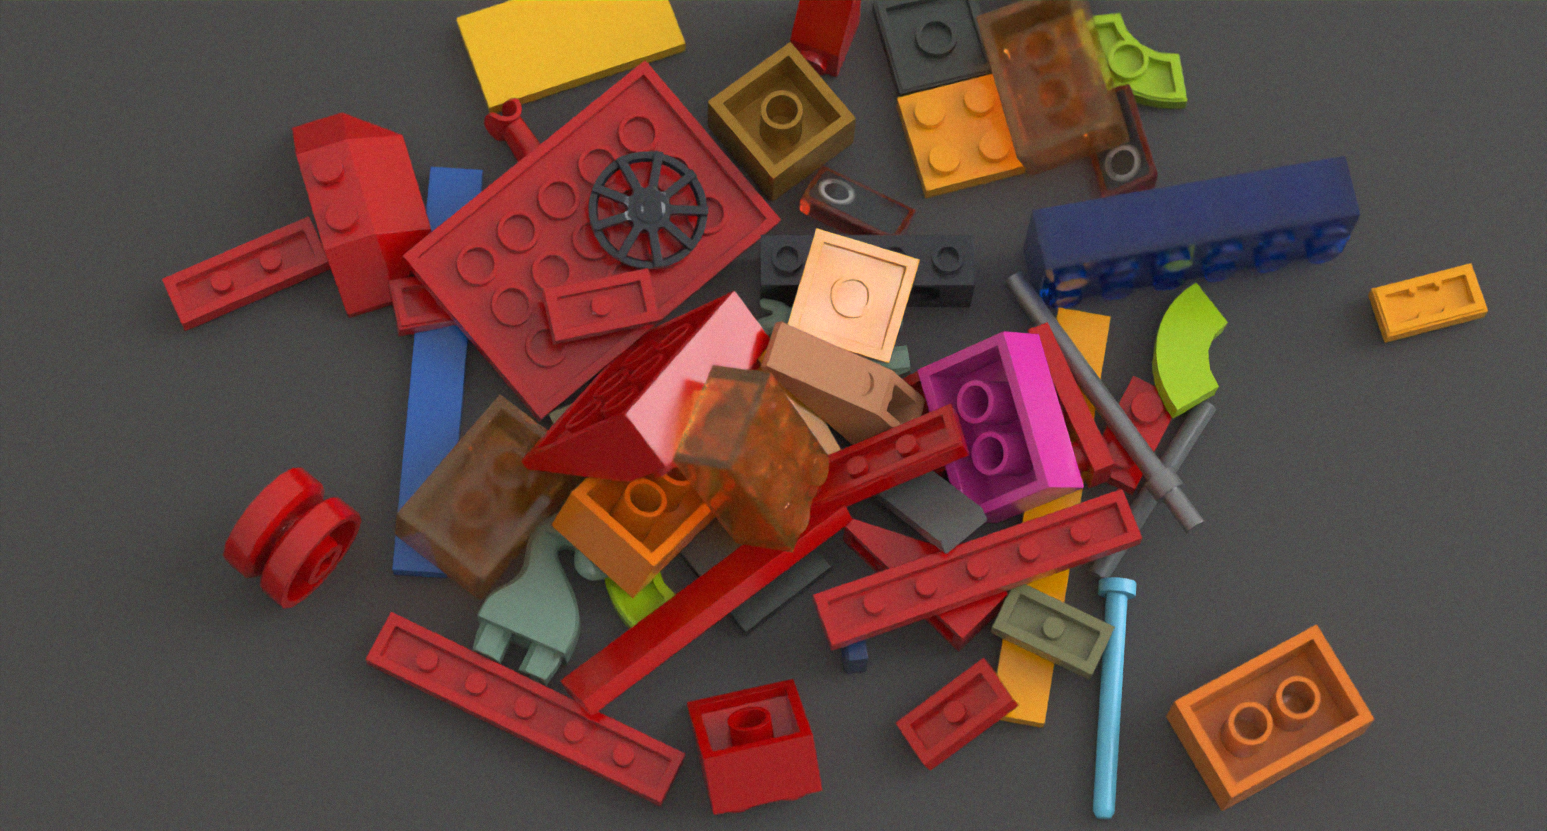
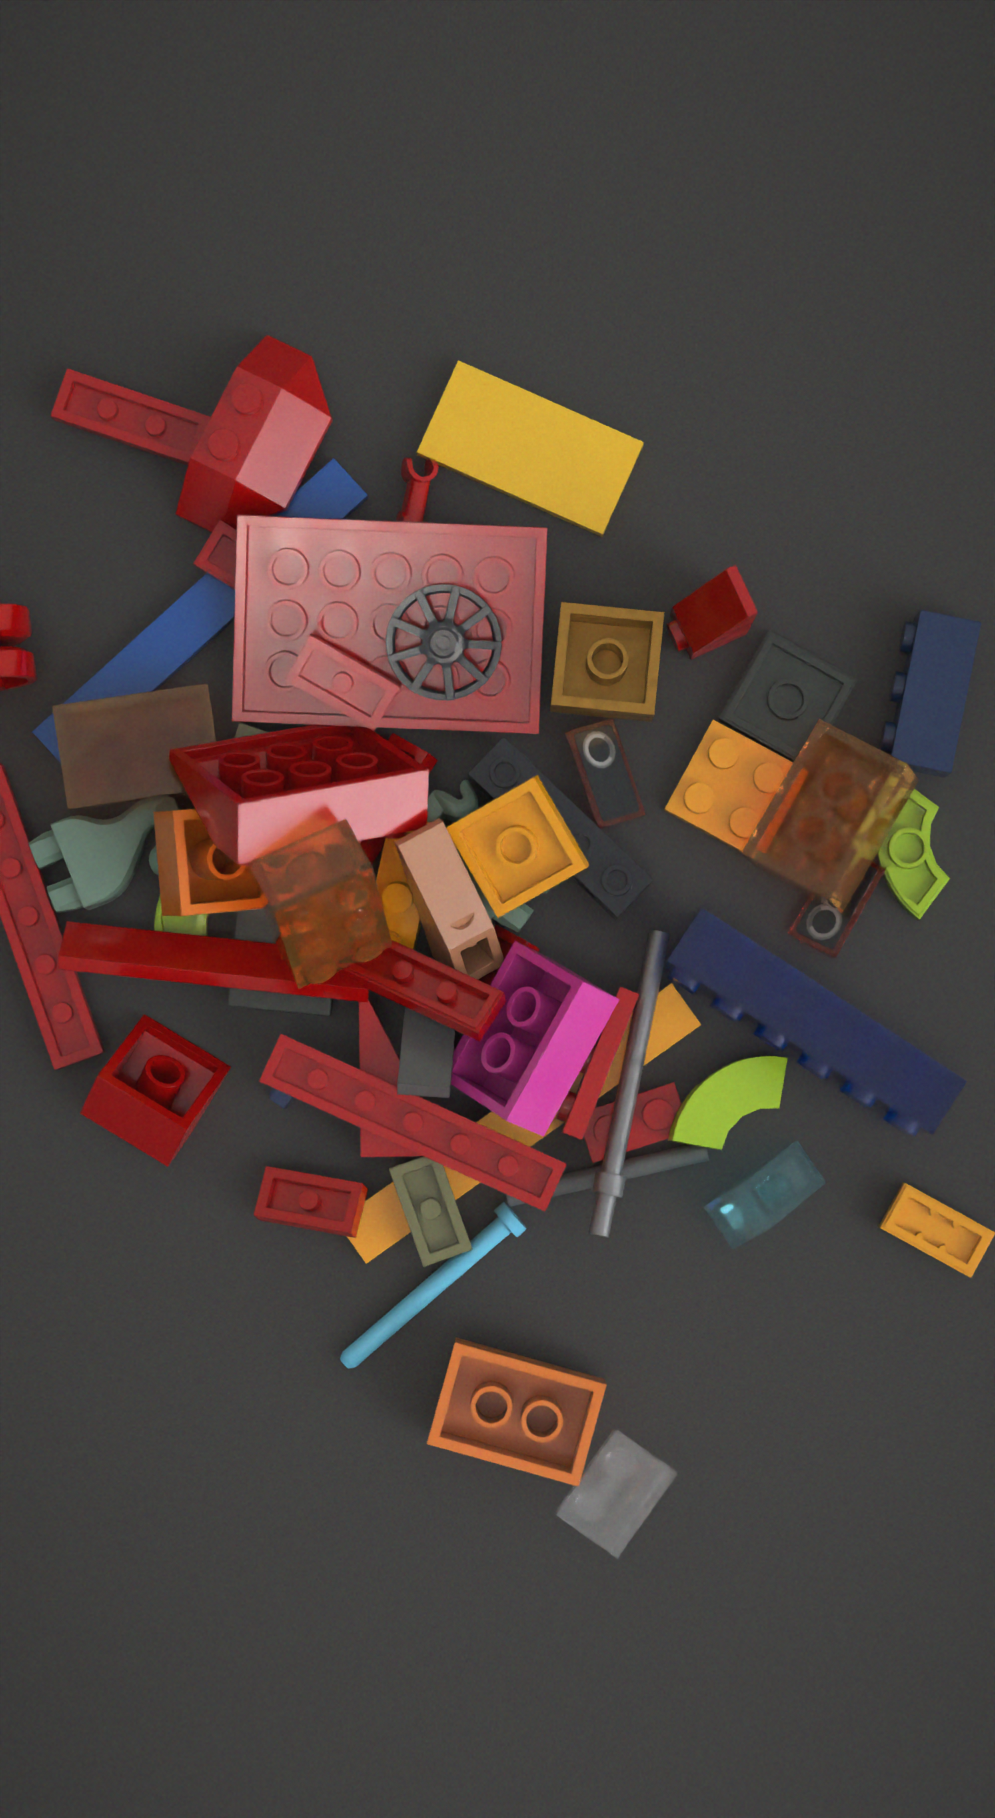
camera: 50 degrees right, 15 degrees up
(1282, 394) = (765, 1195): none -> clear light blue slope
(1407, 713) = (616, 1492): none -> clear plate

